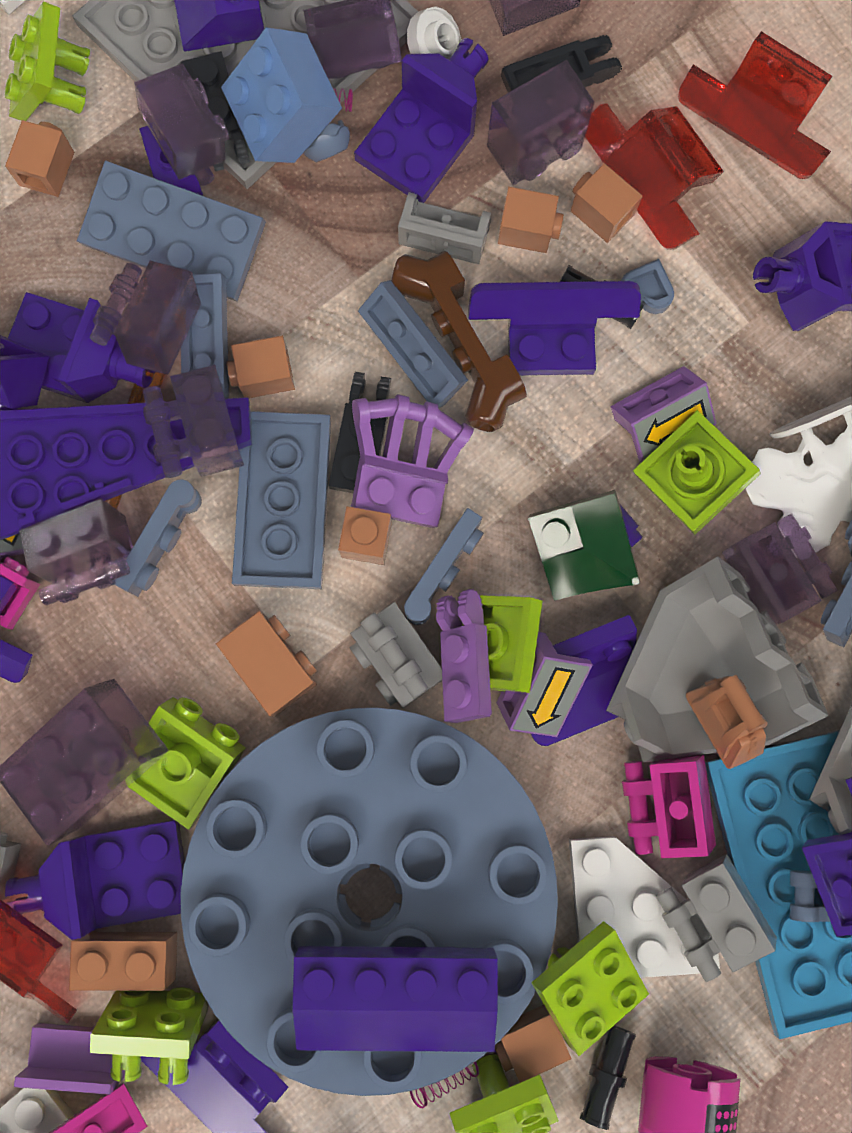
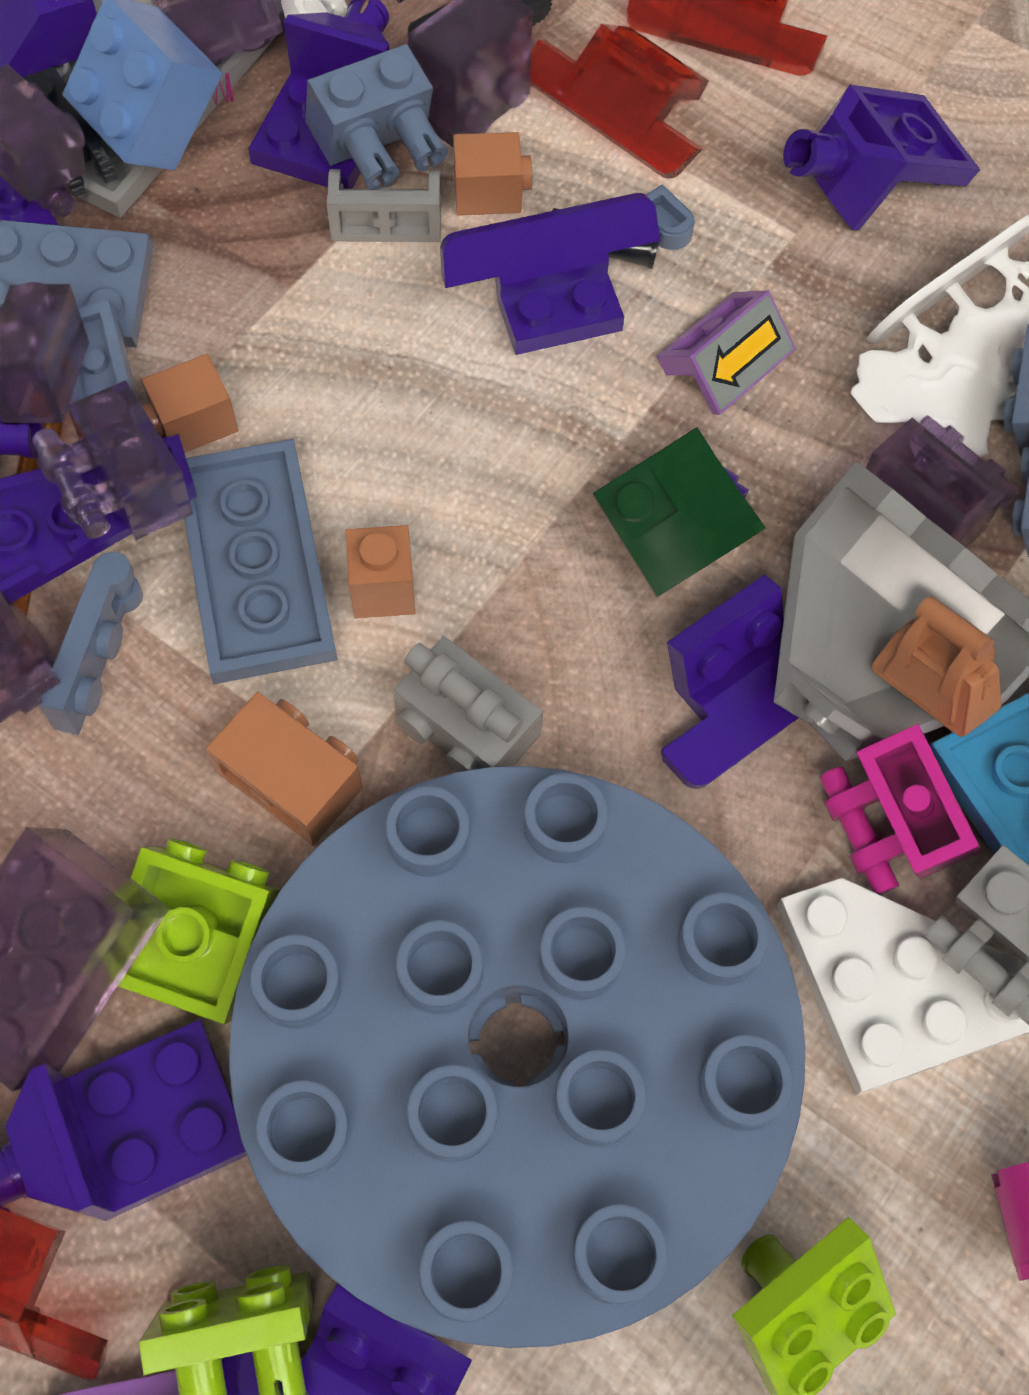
camera: 15 degrees left, 15 degrees down
(123, 961) = (164, 1245): nougat brick -> none
(329, 142) = (212, 142): sand blue plate -> none
(347, 450) = (341, 466): black hinge -> none
(395, 998) = (603, 1151): dark purple slope -> none
(398, 487) = (426, 499): medium lavender plate -> none
(412, 344) = (381, 338): sand blue plate -> none
(425, 1095) = (751, 1265): dark pink piece -> none
(440, 285) = (498, 354): reddish brown plate -> none
(442, 570) = (496, 590): sand blue plate -> none
(451, 149) = (370, 106): none -> sand blue brick
(464, 657) = (561, 680): medium lavender hinge -> none
(511, 640) = (597, 651): lime plate -> none
(532, 1045) = (819, 1197): nougat brick -> none
(552, 692) = (677, 695): panel -> none
(590, 987) = (879, 1079): lime plate -> none
(604, 202) = (577, 136): nougat brick -> none
(607, 1077) = (945, 1221): black pin -> none
(696, 472) = (791, 398): lime plate -> none

